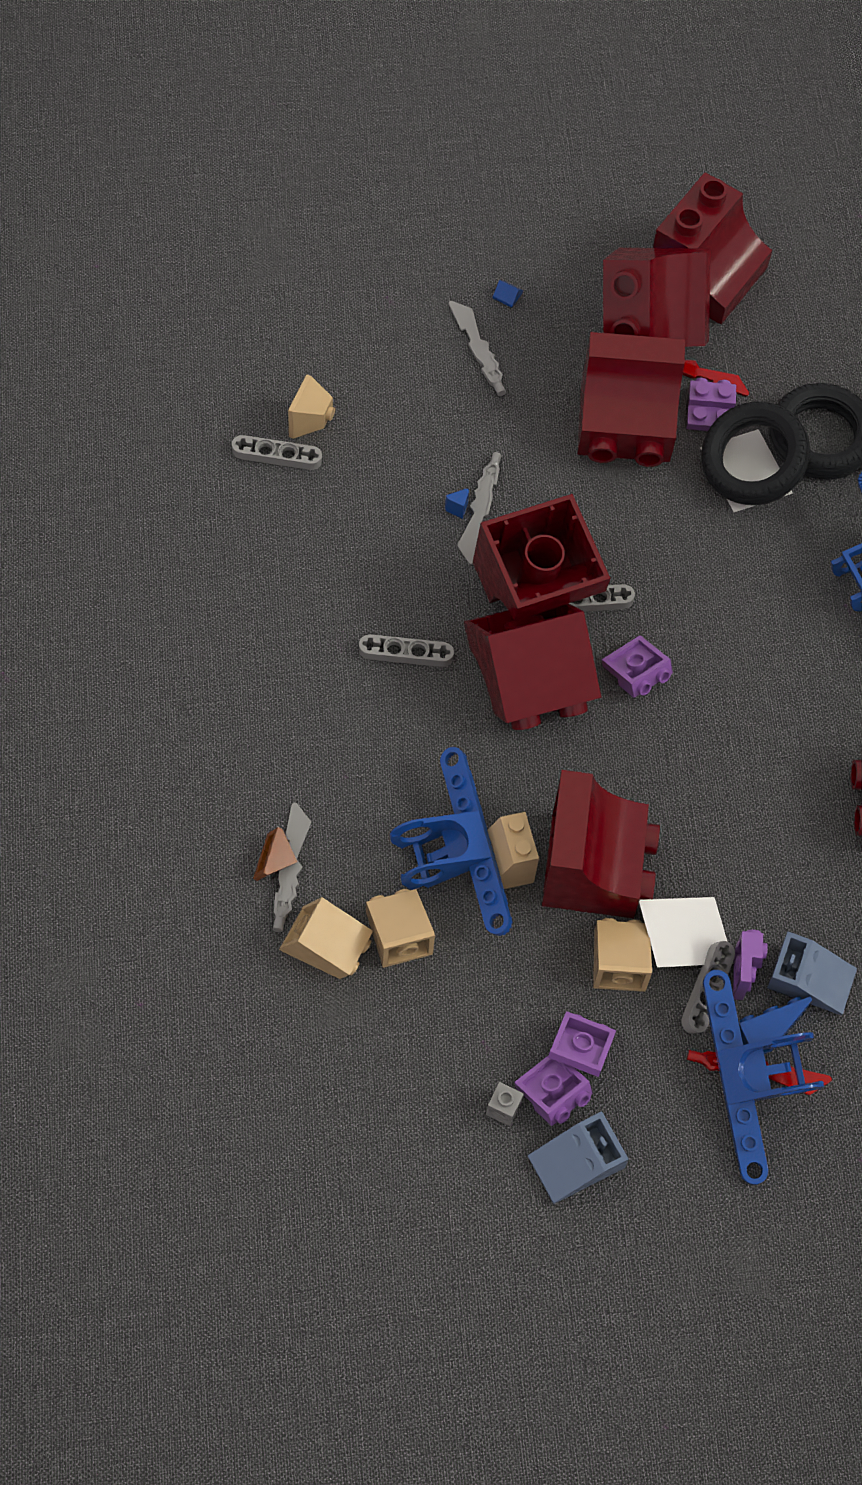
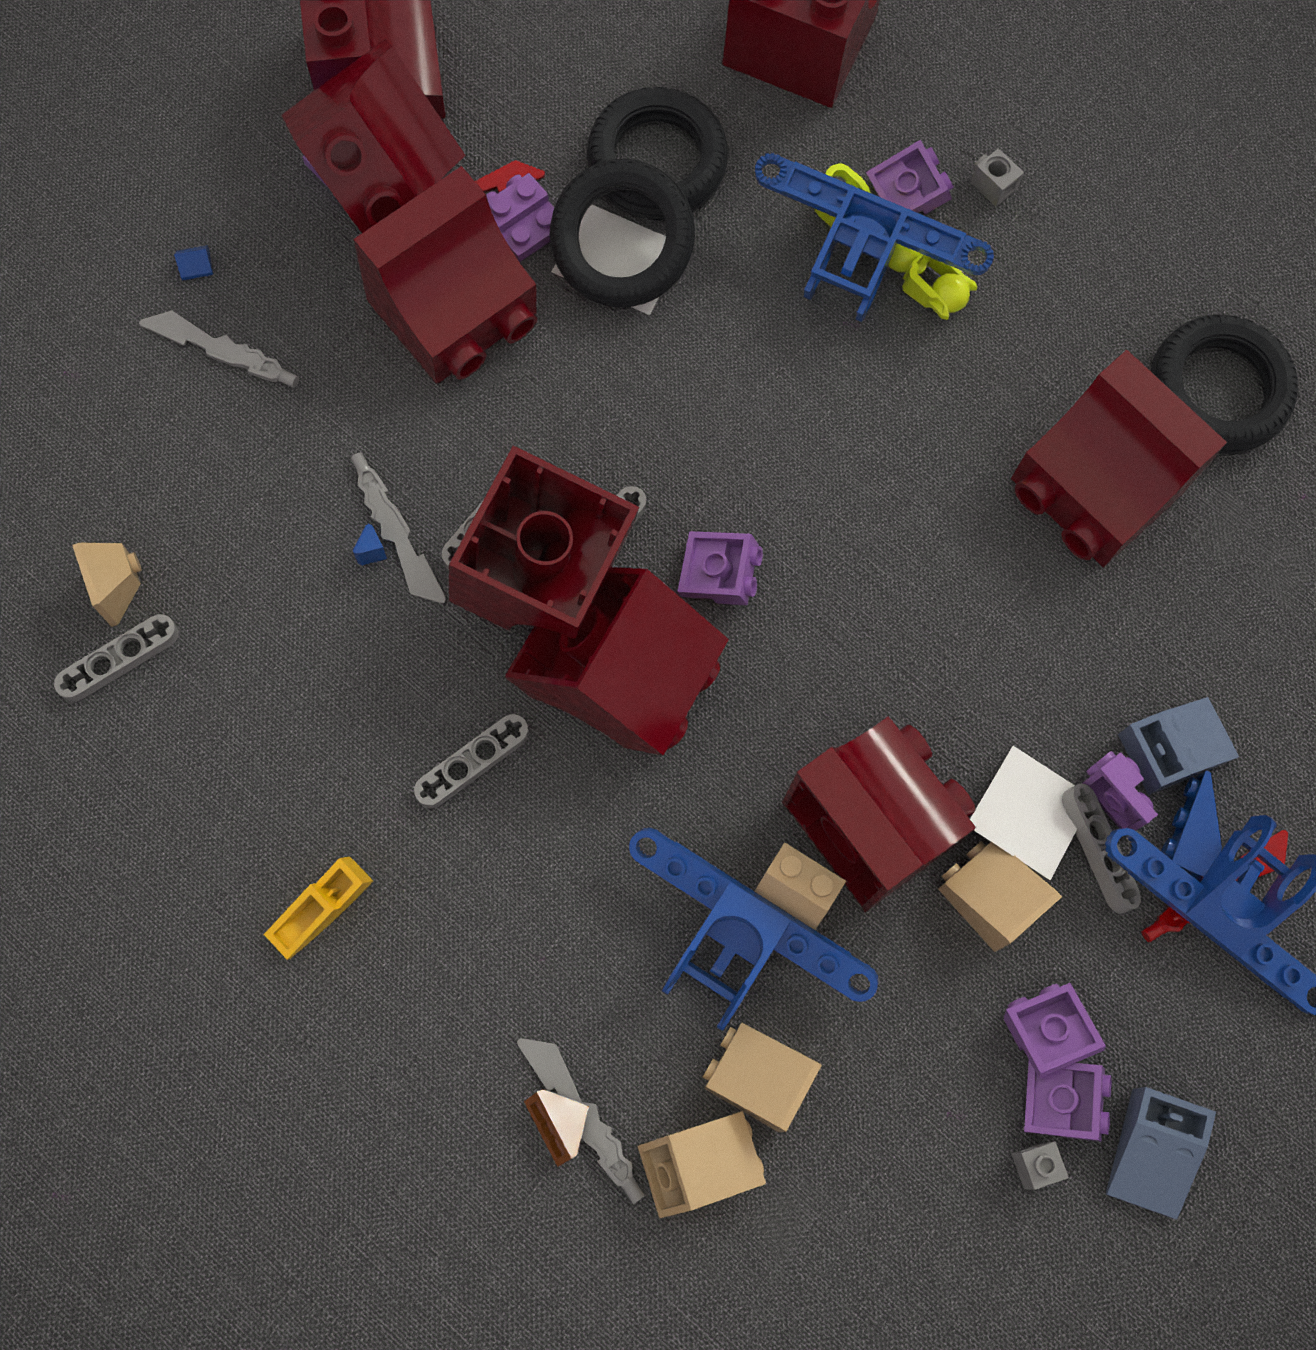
camera: 45 degrees left, 10 degrees up
(258, 651) = (318, 907): none -> yellow slope

